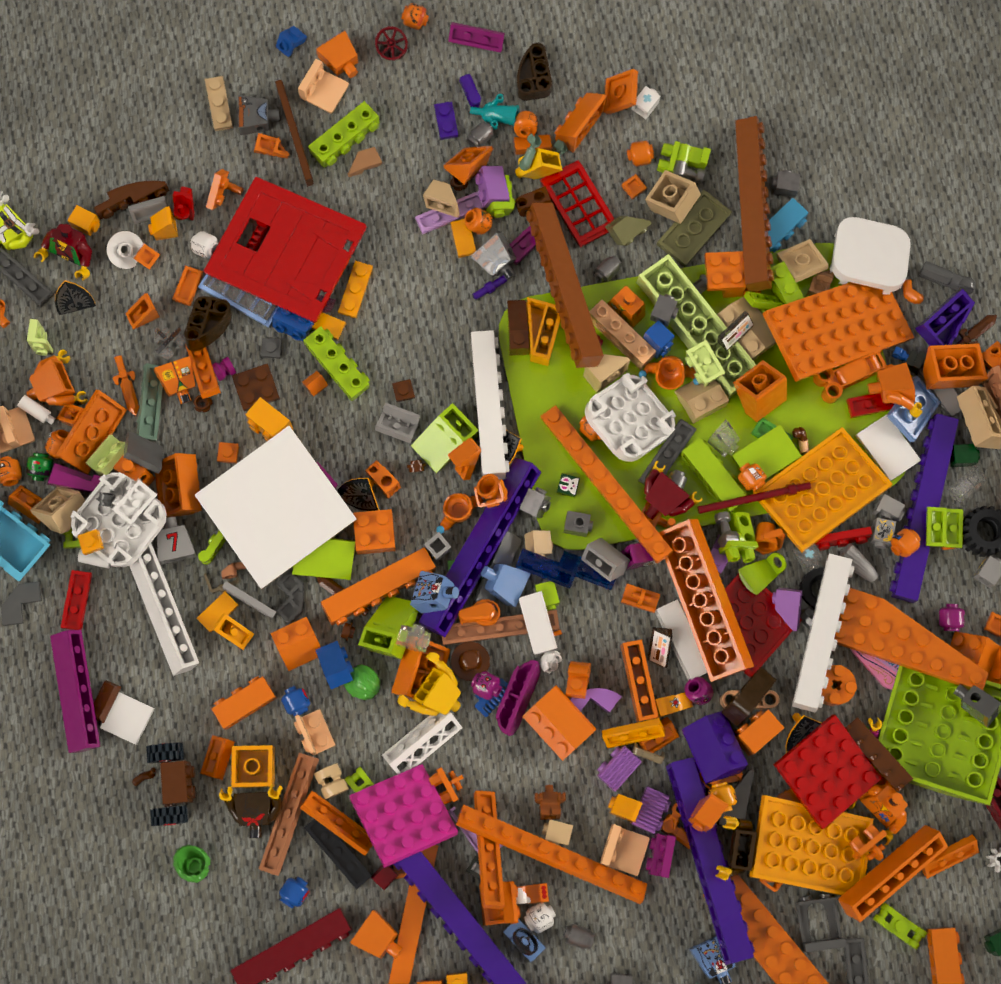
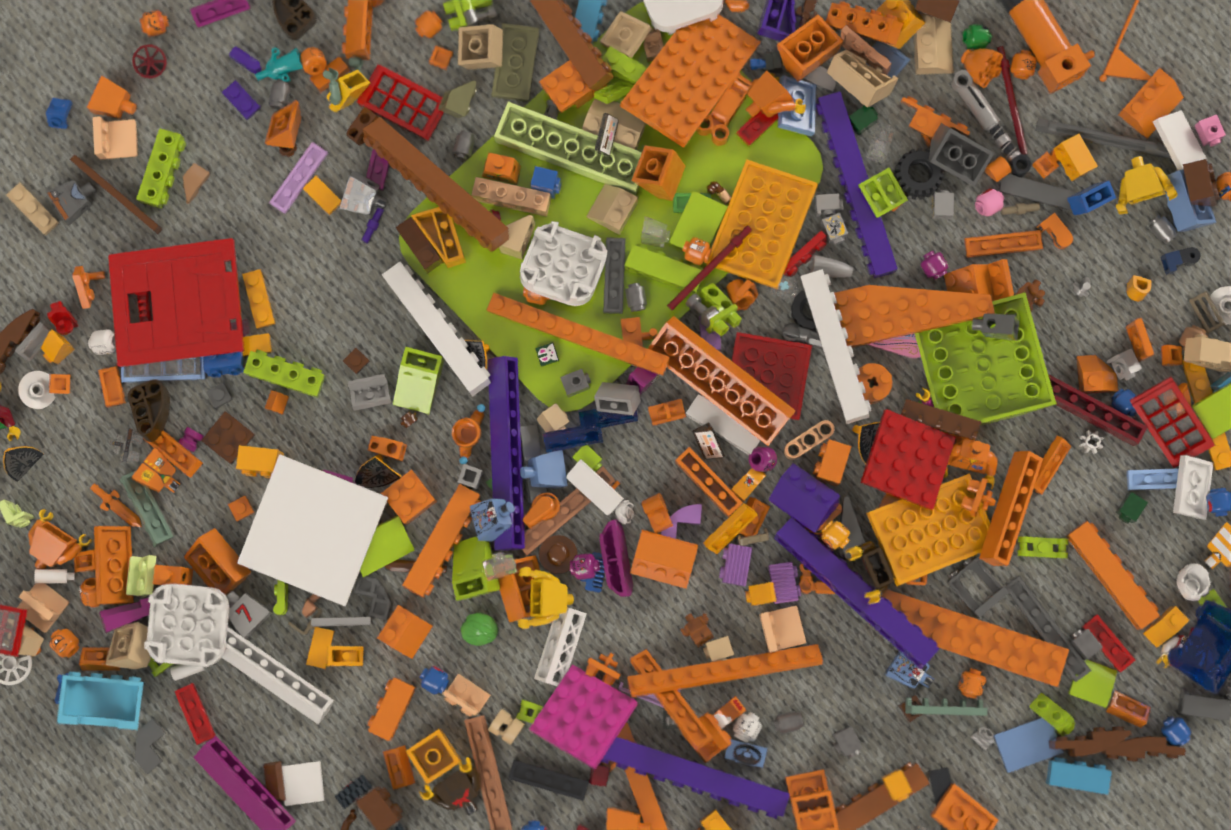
camera: 20 degrees left, 5 degrees up
(39, 466) = (88, 622): green head -> none
(90, 542) = (176, 658): light orange plate -> none
(105, 499) = (165, 614): dark grey plate -> none
(133, 501) = (190, 601): white bracket -> none
(142, 312) = (88, 434): orange slope -> none
(143, 452) = (169, 554): dark grey tile -> none
(197, 402) = (192, 485): reddish brown plate -> none
(270, 146) = (102, 219): orange slope -> none
(333, 662) = (447, 630): blue brick -> none
(337, 822) = (532, 757): orange plate -> none
(348, 631) = (440, 594): reddish brown plate -> none
(441, 198) = (281, 173): tan slope -> none
(465, 458) = (446, 386): orange slope -> none
(478, 221) = (326, 173): orange head -> none
(490, 488) = (483, 400): orange piece -> none
(492, 185) = (319, 135): medium lavender brick -> none
(502, 209) = (339, 150): lime bracket -> none
(536, 502) = (529, 386): flat silver brick -> none
(661, 856) = (815, 614): magenta plate -> none
(664, 309) = (535, 153): flat silver brick -> none
(666, 495) = (634, 312): dark red torso -> none
(669, 372) = (573, 203): orange piece -> none
(704, 363) = (597, 178): yellowish green bracket -> none
(707, 813) = (830, 556): orange slope -> none
(749, 696) = (806, 438): dark brown beam -> none
(761, 573) = (754, 327): lime piece -> none
(788, 605) = (793, 341): medium lavender slope -> none
(888, 448) = (795, 153): white tile -> none
(905, 543) = (858, 227): orange head -> none

